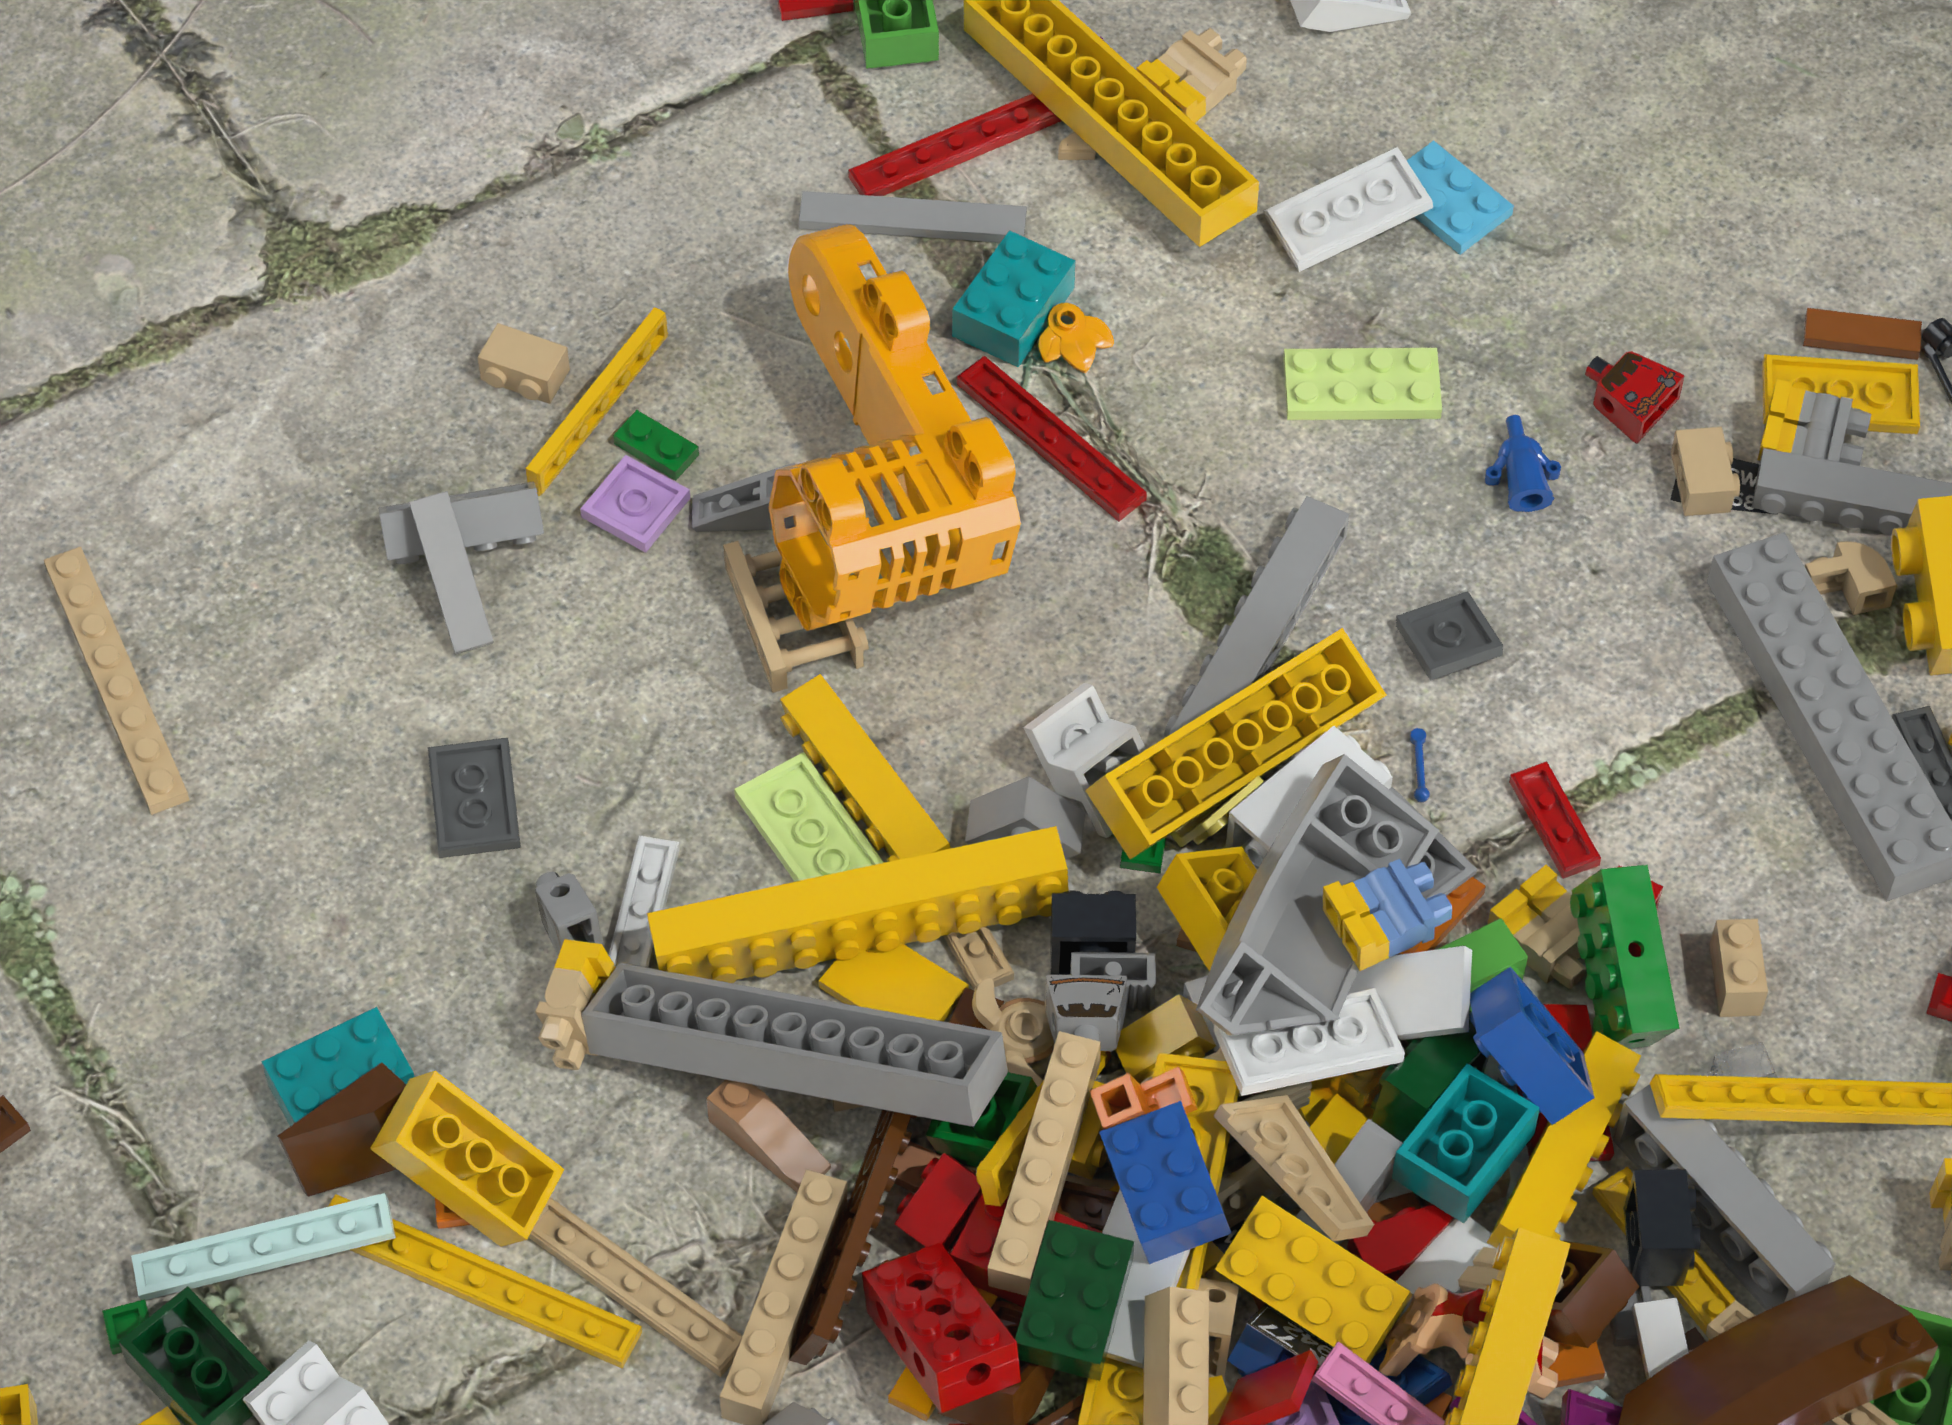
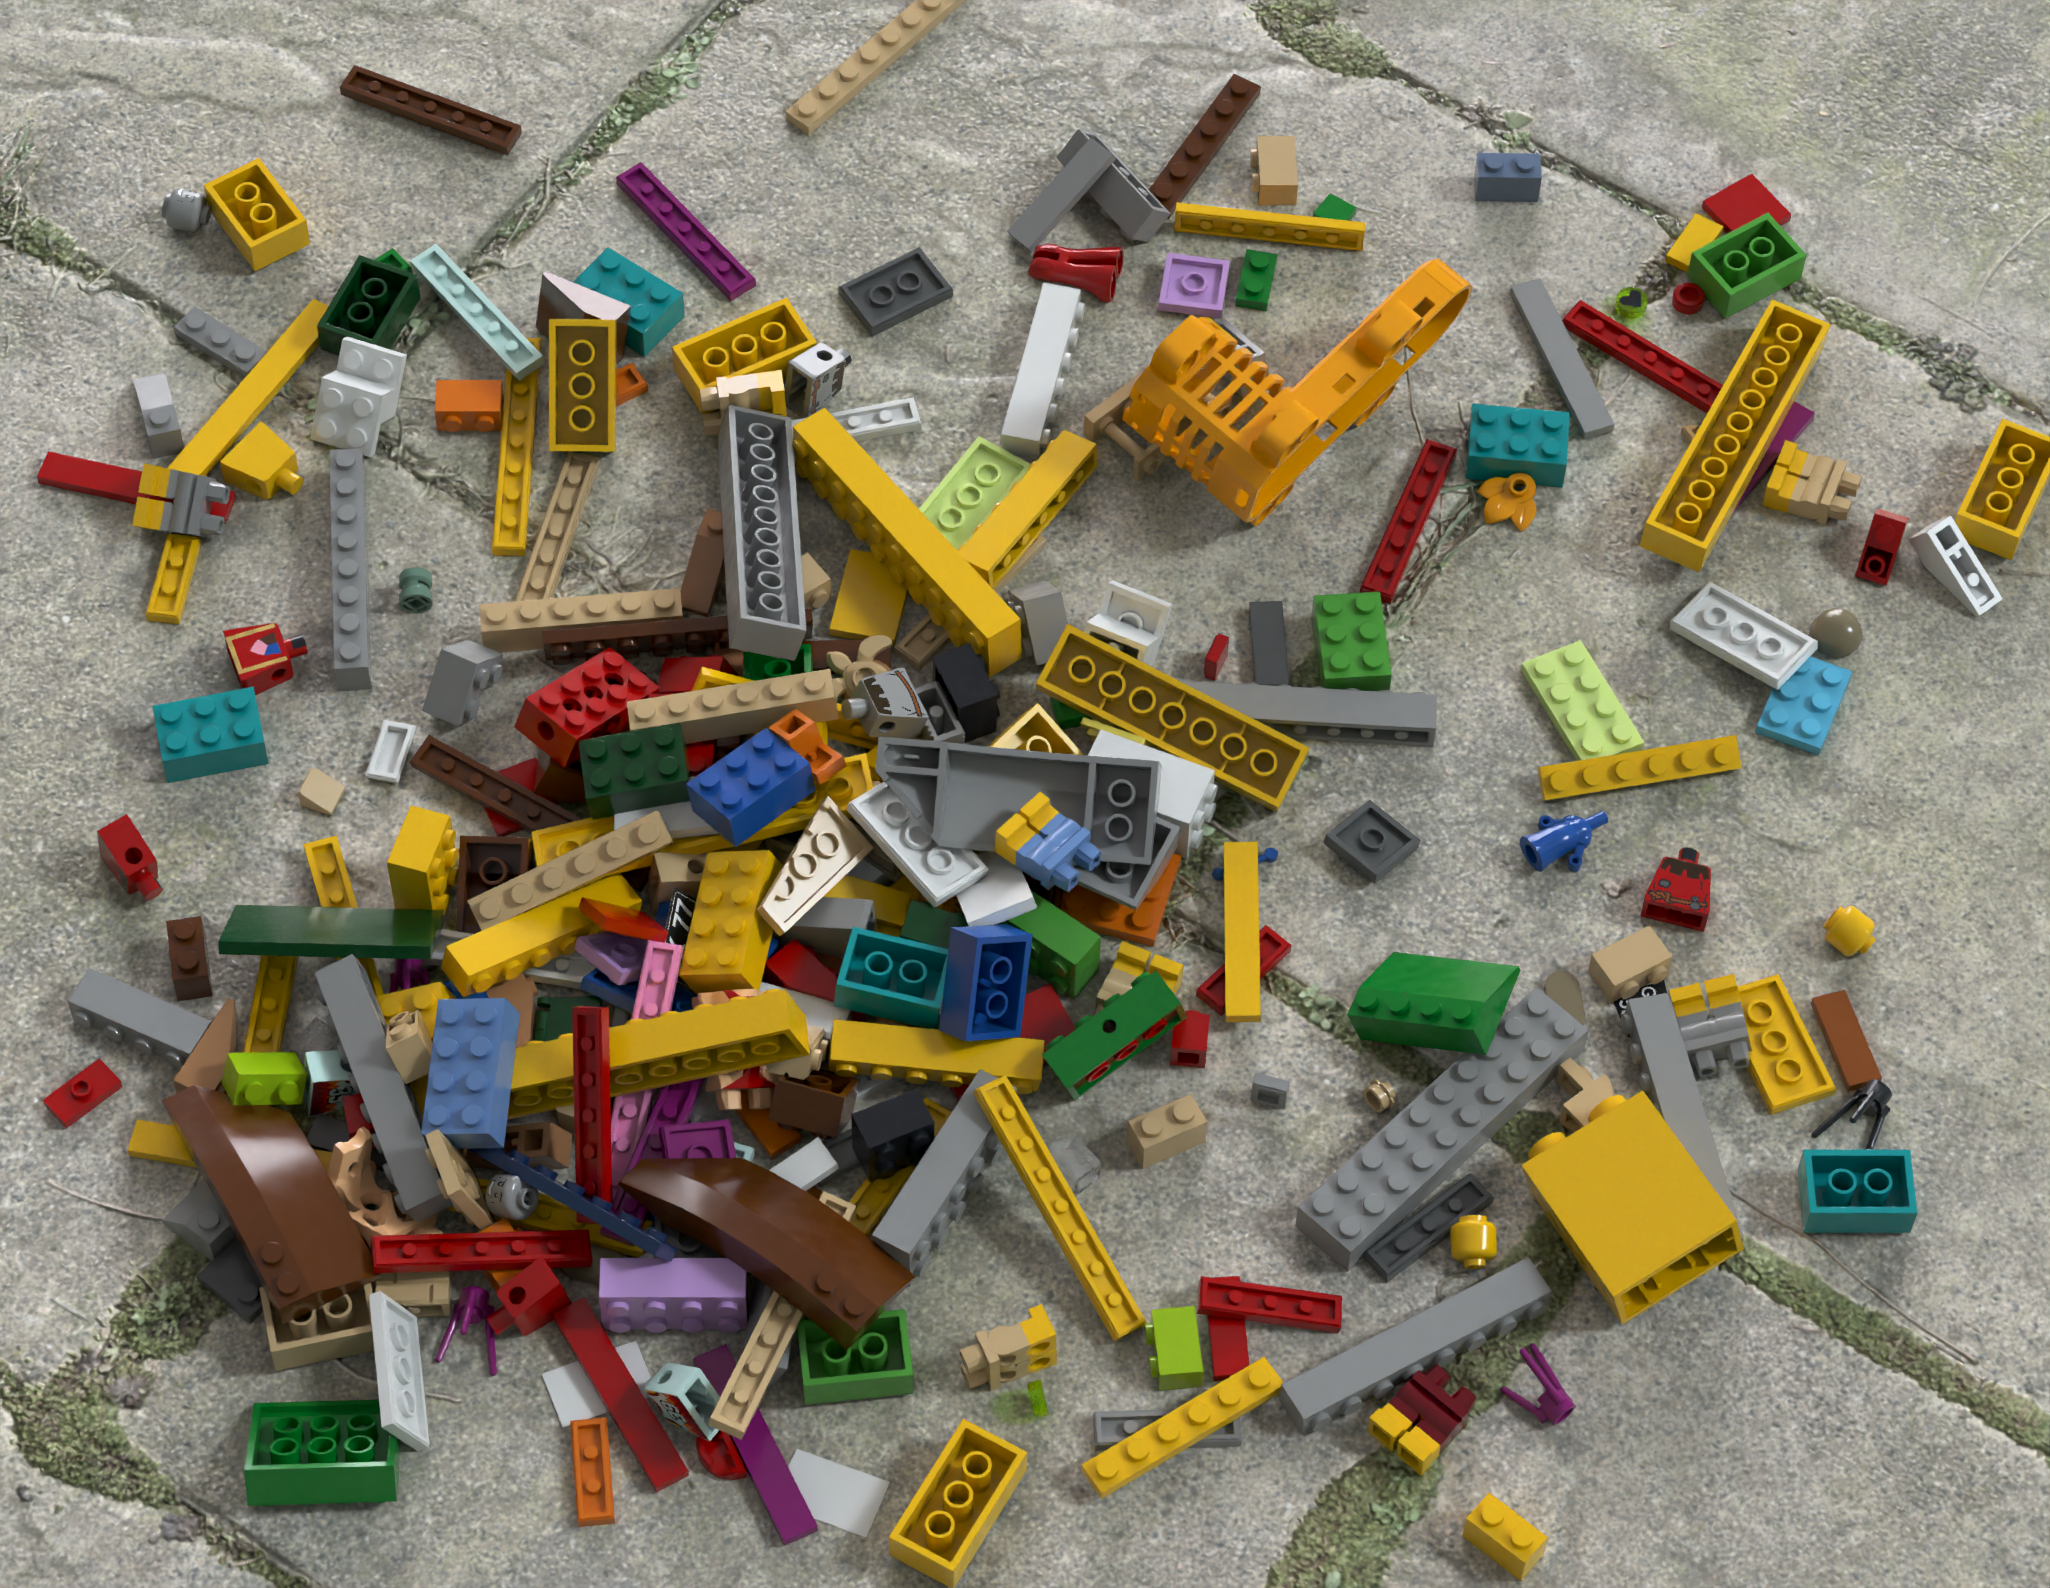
camera: 65 degrees right, 0 degrees up
(259, 980) = (686, 231): none -> magenta tile
(398, 1309) = (469, 405): none -> orange brick
(436, 415) = (1204, 141): none -> reddish brown plate
(495, 980) = (743, 346): none -> yellow brick
(553, 597) = (1087, 269): none -> red piece
(605, 337) = (1335, 208): none -> green tile
(657, 161) = (1507, 177): none -> sand blue brick
(675, 693) = (1041, 371): none -> white brick
(829, 45) = (1696, 234): none -> yellow tile
(874, 129) = (1631, 302): none -> clear neon green tile
(895, 79) = (1688, 298): none -> red tile
(1148, 680) = (1216, 657): none -> red tile
(1151, 629) = (1268, 643): none -> dark grey tile
(1196, 550) = (1351, 641): none -> bright green brick
(1295, 49) = (1881, 546): none -> red slope
(1377, 132) = (1836, 632): none -> dark tan hair
(1466, 366) = (1639, 767): none -> yellow plate
(1516, 797) = (1242, 932): none -> yellow tile
(1691, 650) = (1433, 1002): none -> green slope
(1701, 543) = (1566, 992): none -> dark tan tile
(1724, 852) = (1270, 1090): none -> light grey tile
(1743, 273) = (1849, 930): none -> yellow head
(1767, 756) = (1379, 1095): none -> tan plate

